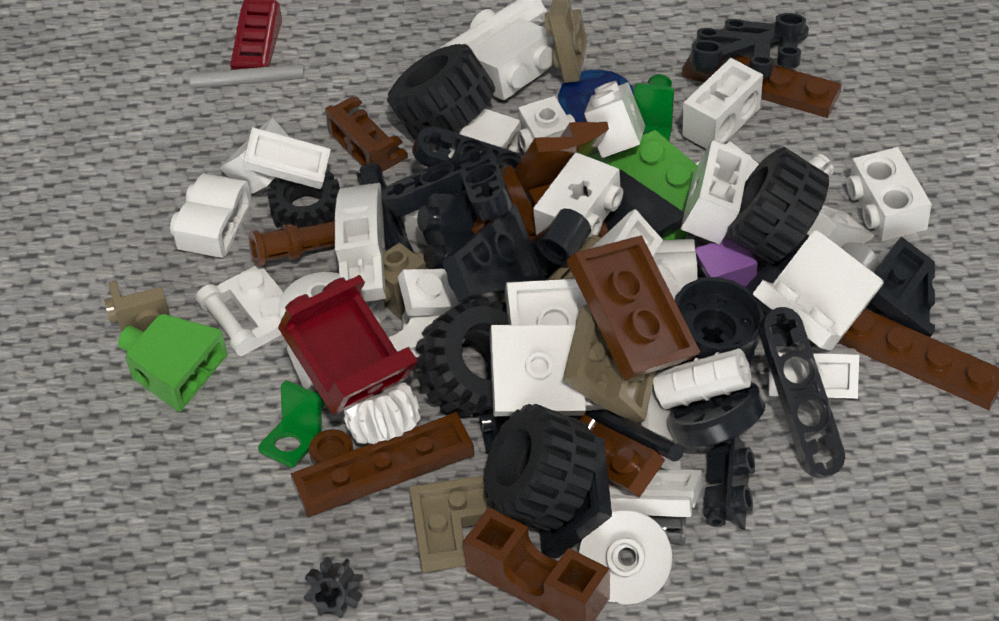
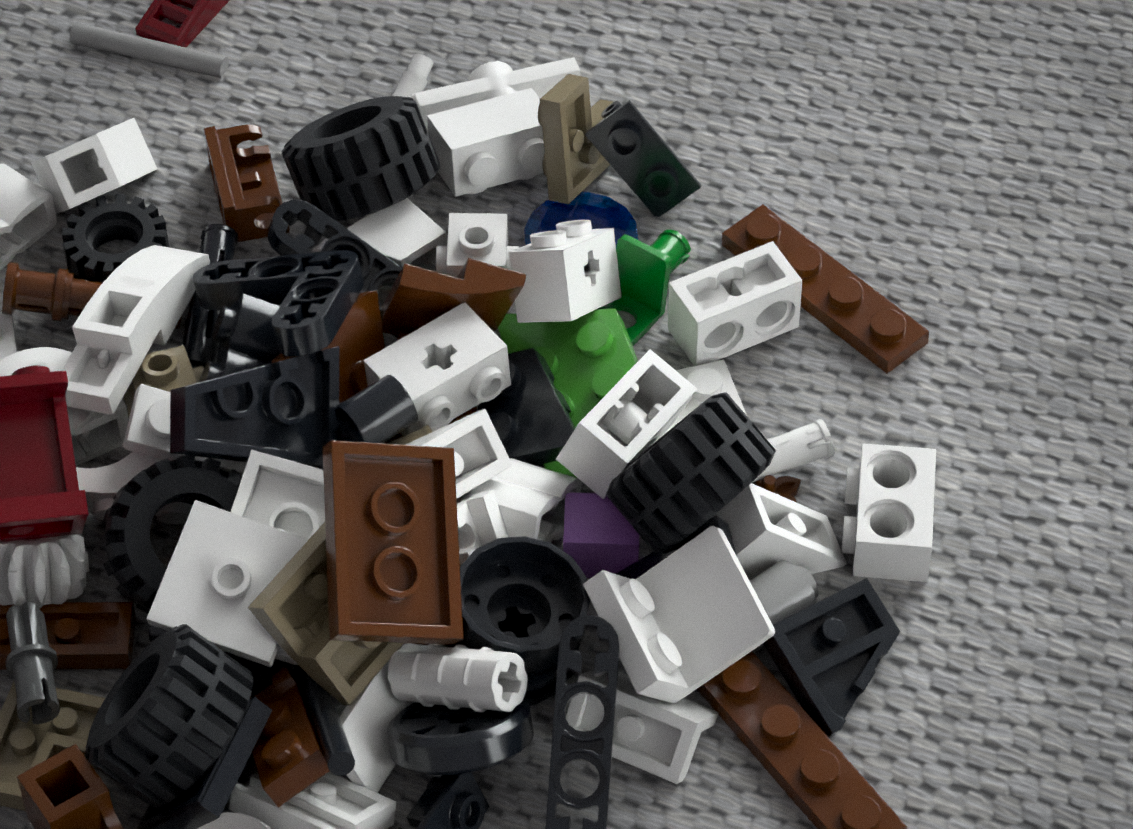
camera: 20 degrees right, 0 degrees up
(286, 158) = (105, 179): white tile -> none
(420, 471) = (32, 663): none -> dark grey axle
(431, 38) = (415, 77): none -> white helmet
(614, 36) = (642, 158): none -> black hinge
(787, 29) = (897, 229): black plant -> none

